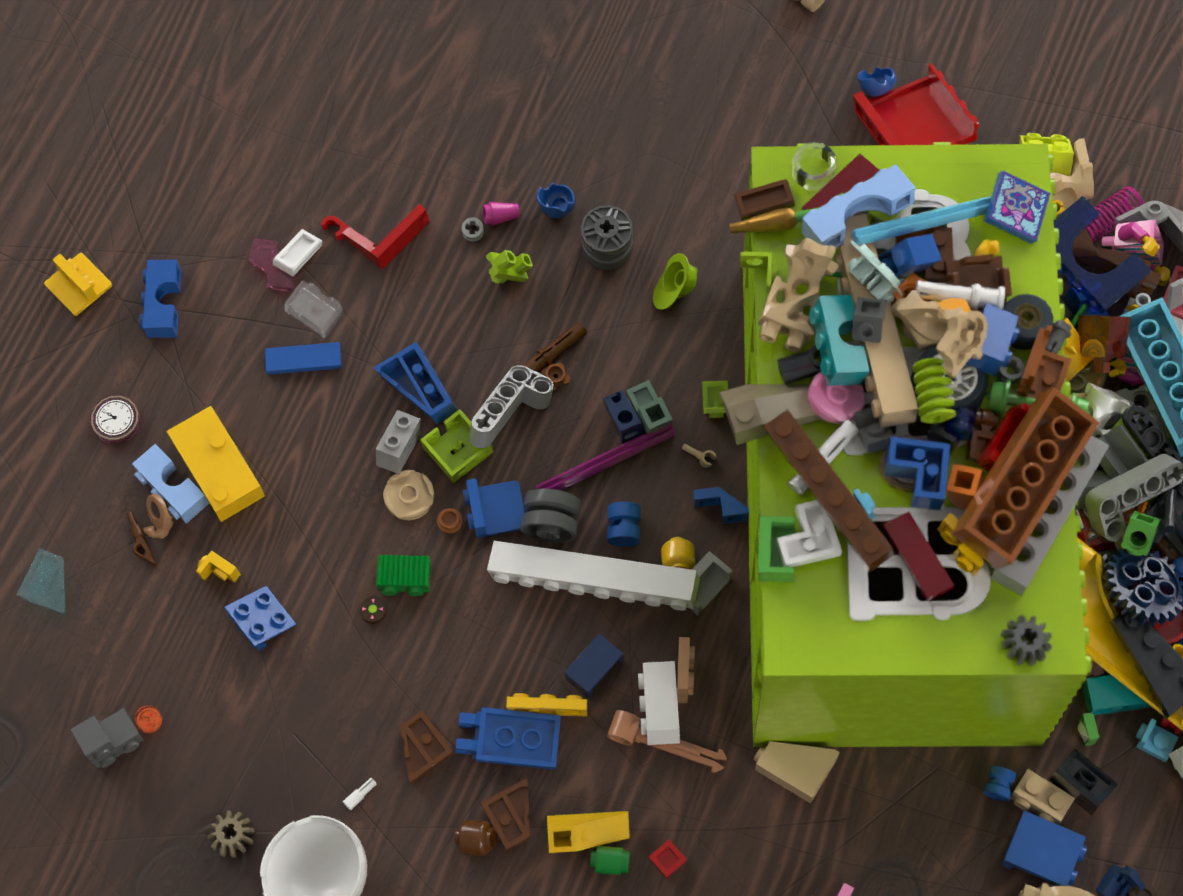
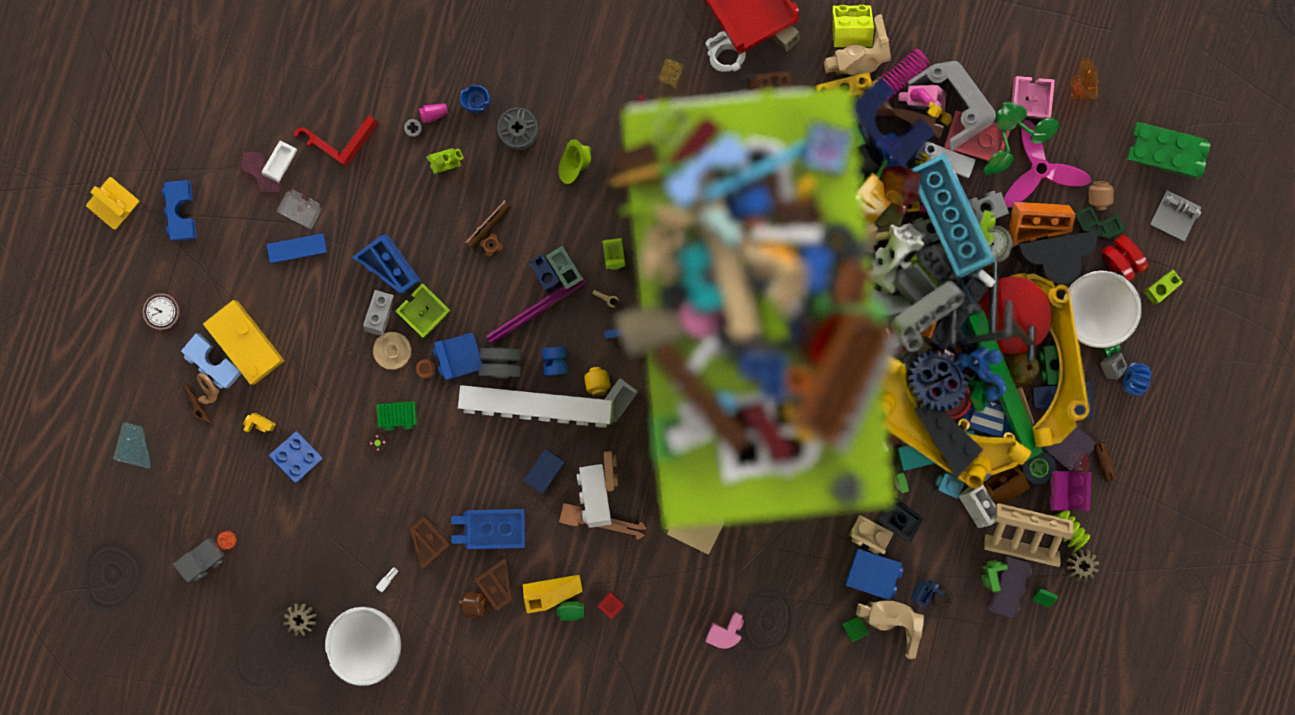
camera: 10 degrees left, 20 degrees up
(516, 387) = (455, 280): light grey beam -> none
(548, 704) = (513, 502): yellow plate -> none
(869, 319) = (720, 263): dark grey bracket -> none
(1000, 782) = (840, 528): blue wheel -> none
(1144, 524) = (932, 346): bright green brick -> none

